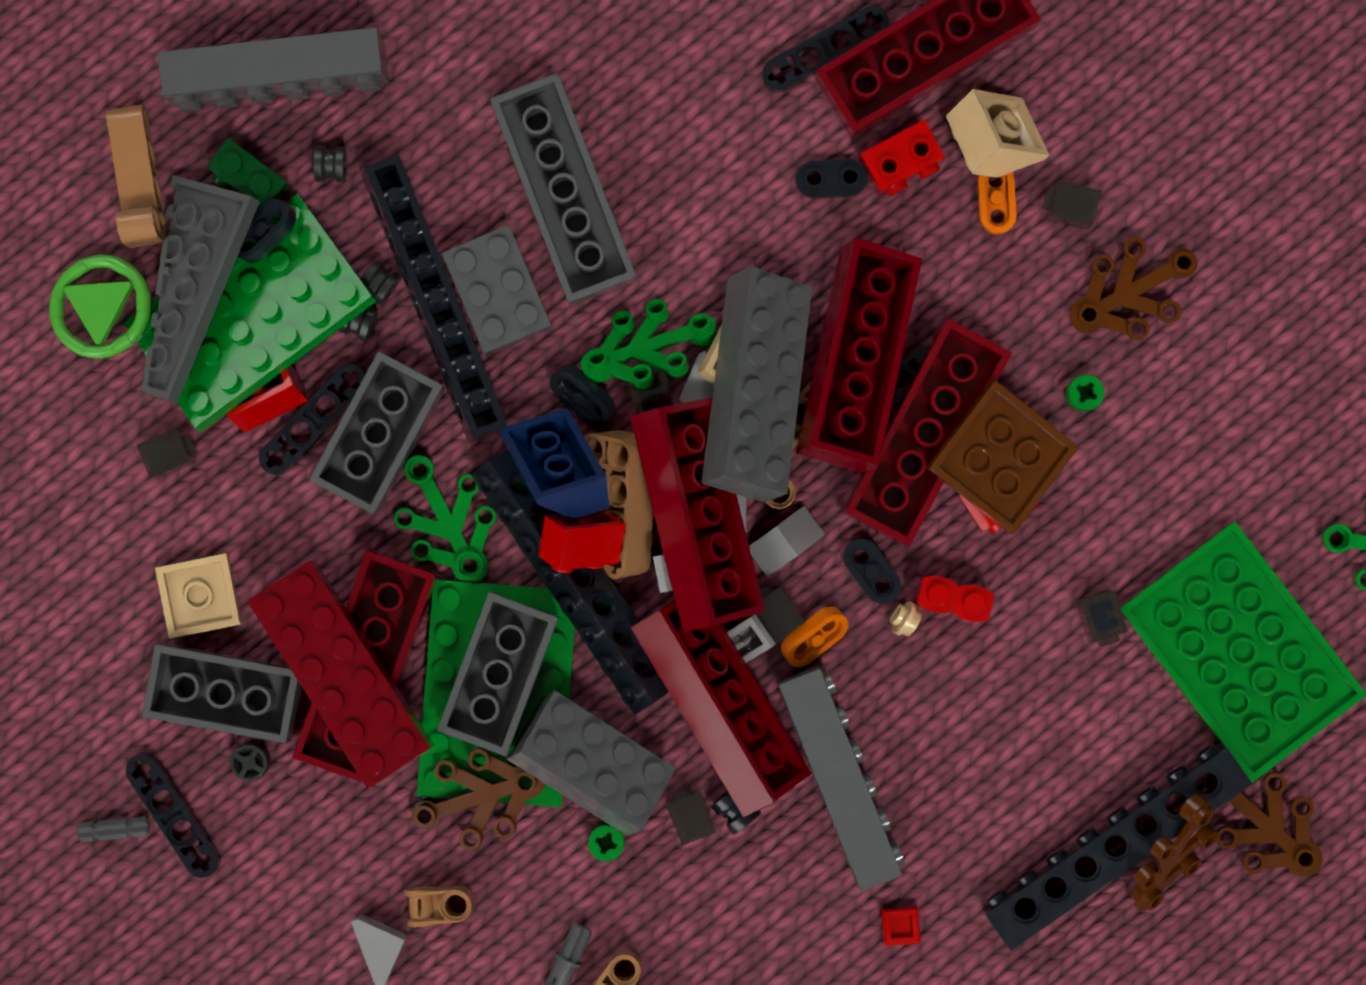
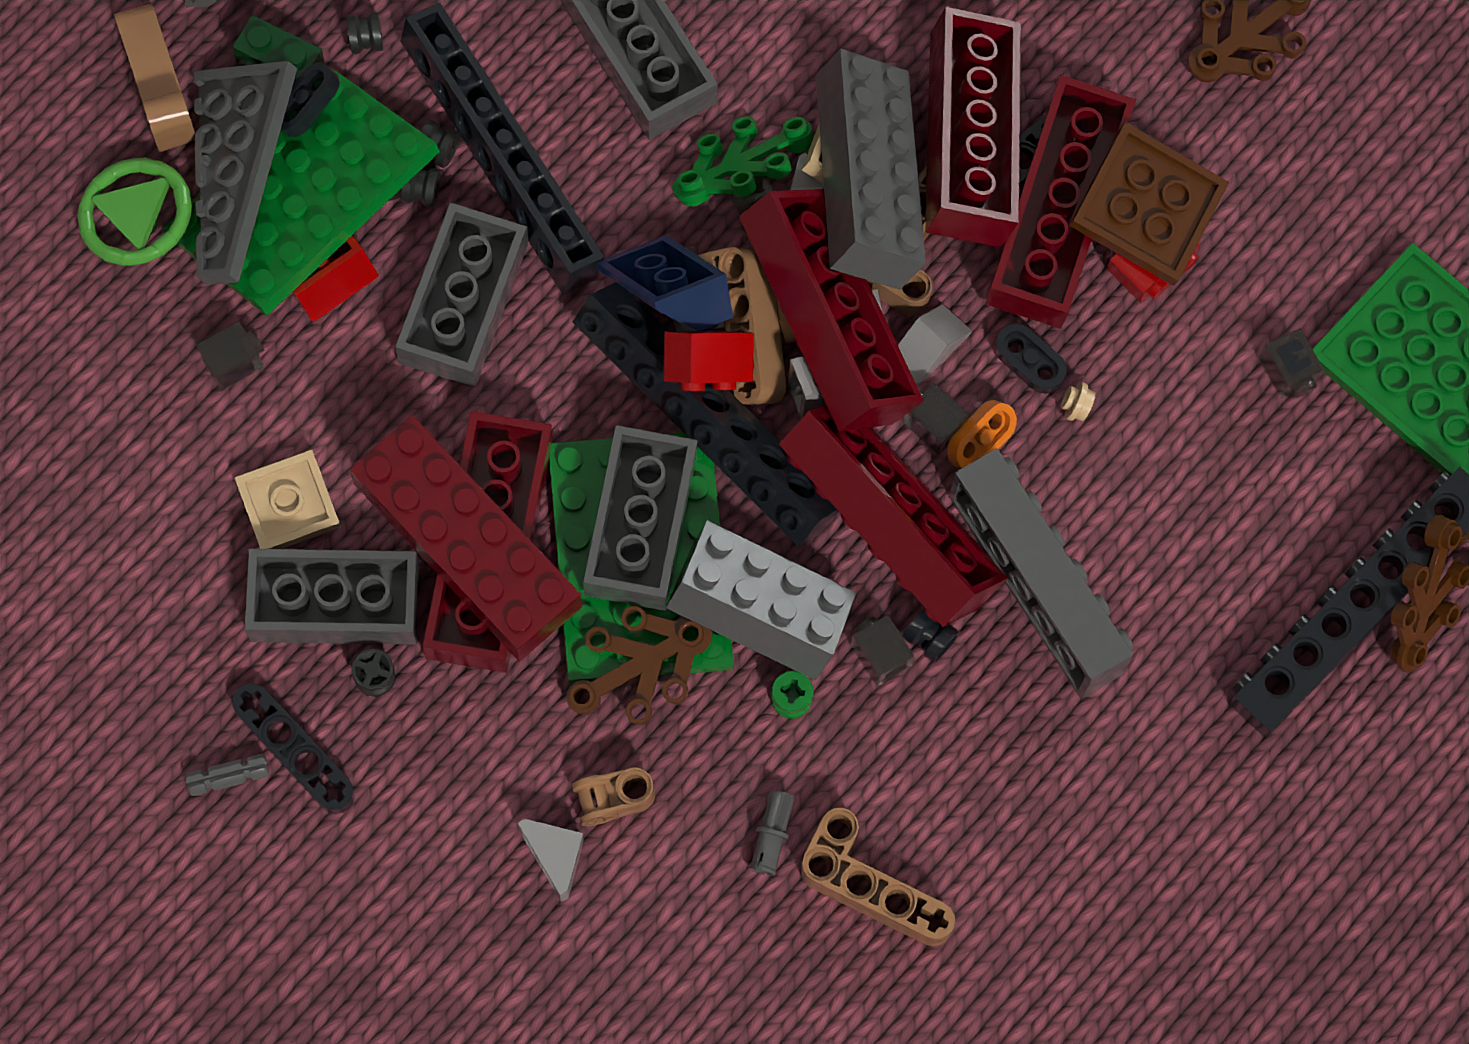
camera: 15 degrees left, 15 degrees down
(309, 415) = (382, 295): black beam -> none
(449, 525) = (554, 385): green plant -> none
(497, 290) = (570, 130): dark grey brick -> none
(582, 395) = (680, 224): black plate -> none
(750, 638) = (915, 442): light grey slope -> none
(900, 925) = (1141, 735): red tile -> none
(945, 596) = (1135, 371): red brick -> none
(1080, 398) = (1218, 149): green wheel -> none

